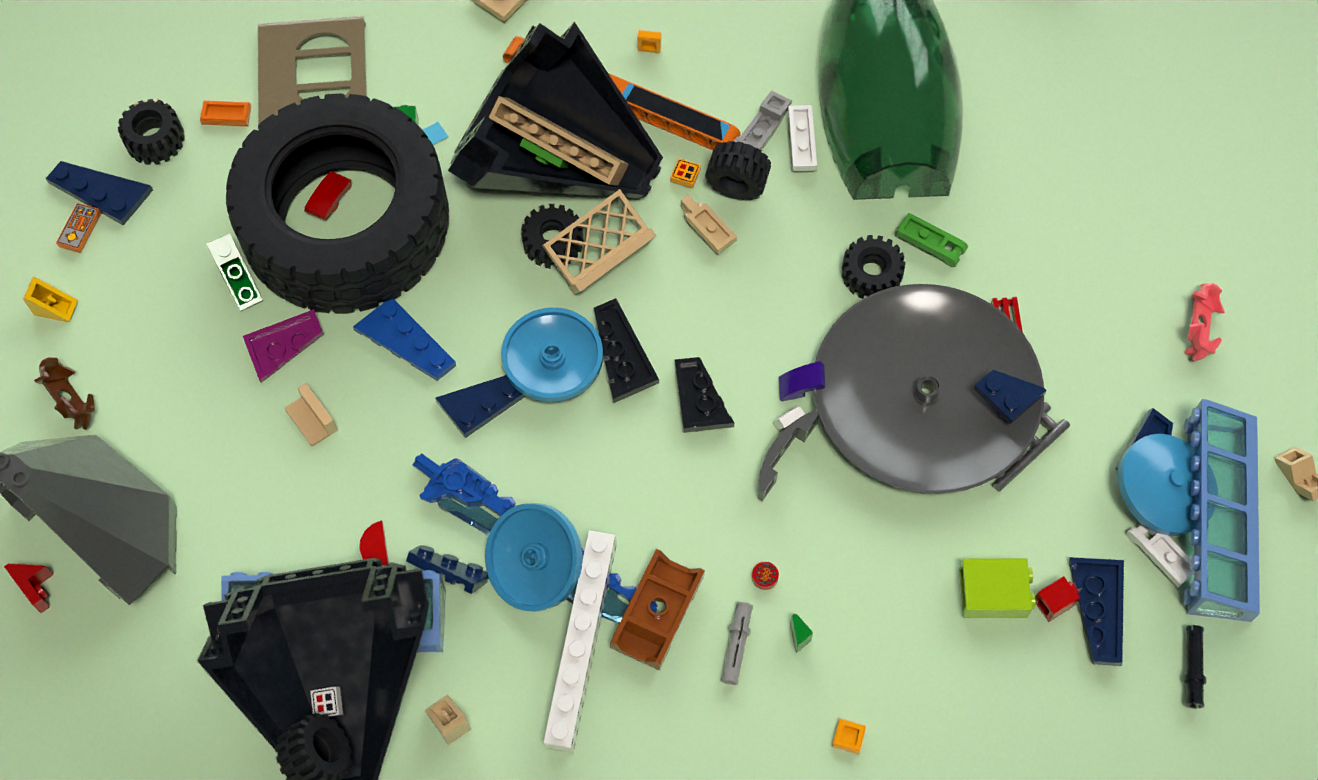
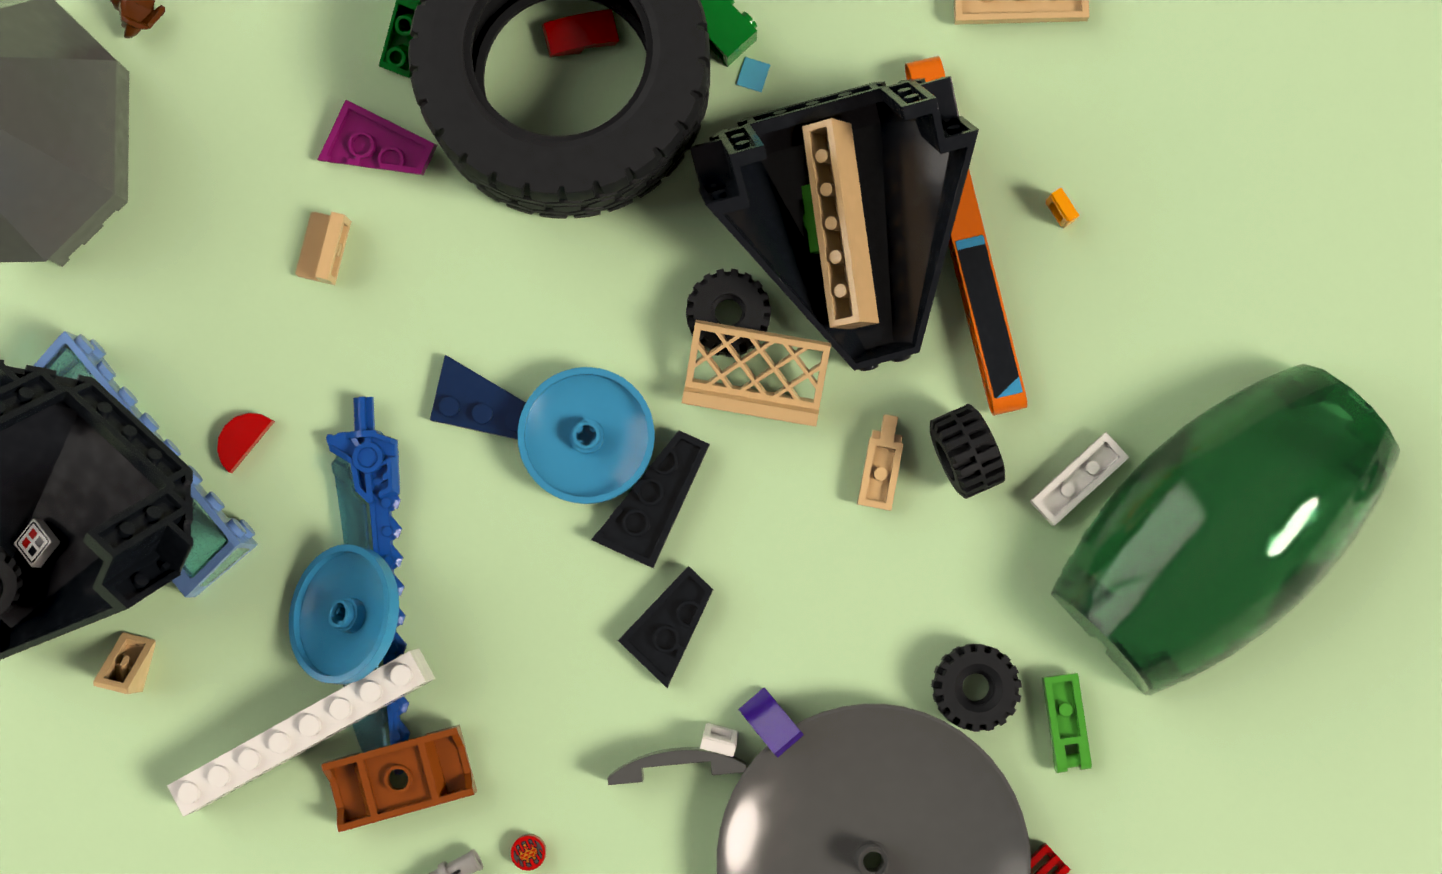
camera: 50 degrees right, 20 degrees up
(399, 333) = (487, 257): blue wing -> none
(455, 572) = (273, 538): dark blue wing -> none
(685, 173) = (928, 387): light orange tile -> none
(766, 121) = (1052, 423): light grey slope -> none

